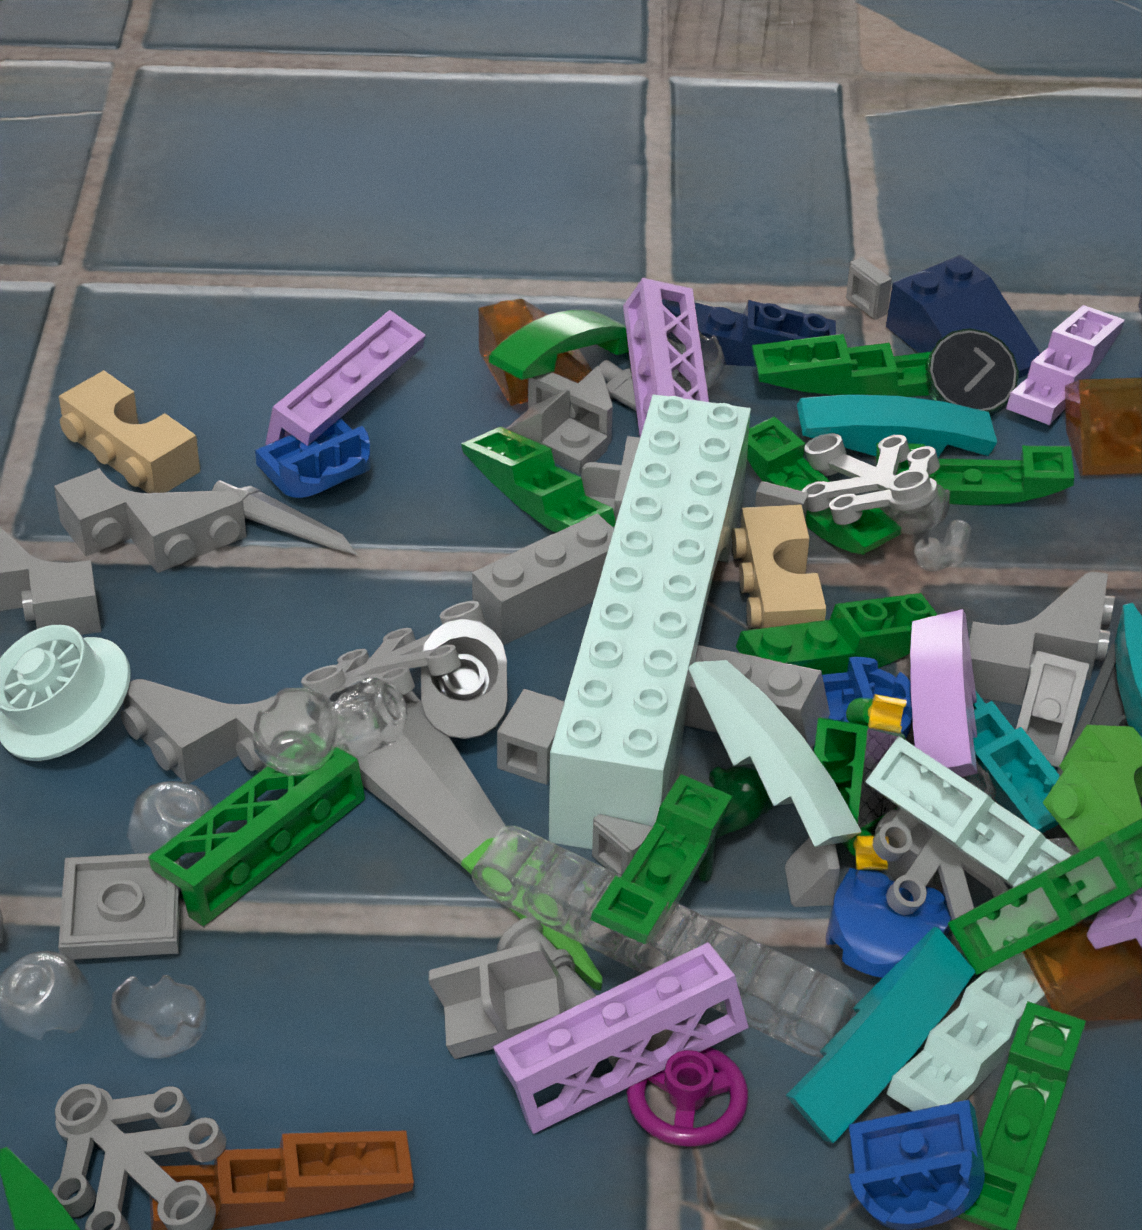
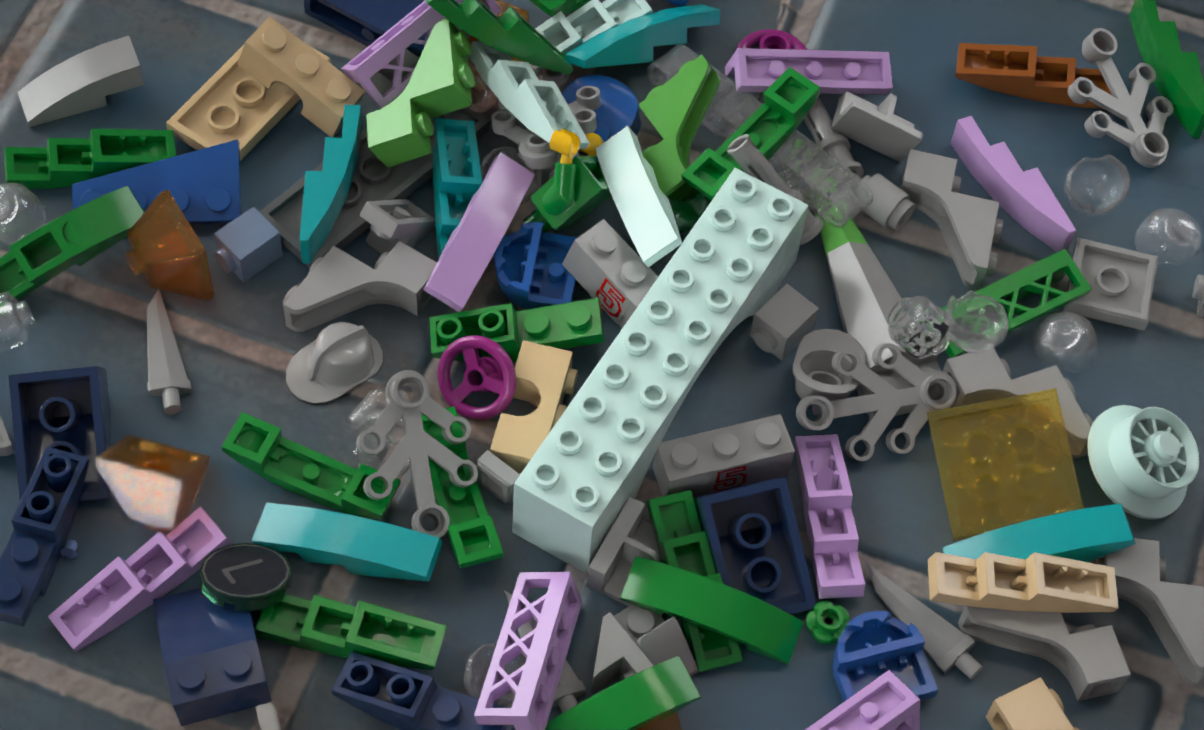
camera: 165 degrees left, 15 degrees up
(161, 576) = (1071, 535): none -> teal slope
(170, 516) = (1018, 584): none -> tan slope
(225, 638) = (1003, 462): none -> clear yellow plate
(272, 981) = (1019, 193): none -> lavender slope
(341, 923) = (965, 220): none -> light grey arch
(384, 491) = (819, 629): none -> green plate
(407, 561) = (829, 516): none -> lavender slope
(456, 915) = (890, 204): none -> light grey brick
(485, 516) = (758, 543): none -> dark blue slope
(503, 439) = (712, 607): none -> green slope
(596, 837) = (756, 165): none -> light grey pin
(779, 896) = (676, 114): none -> bright green arch
(854, 581) = (497, 375): none -> magenta piece
(1018, 583) = (334, 363): none -> light grey piece

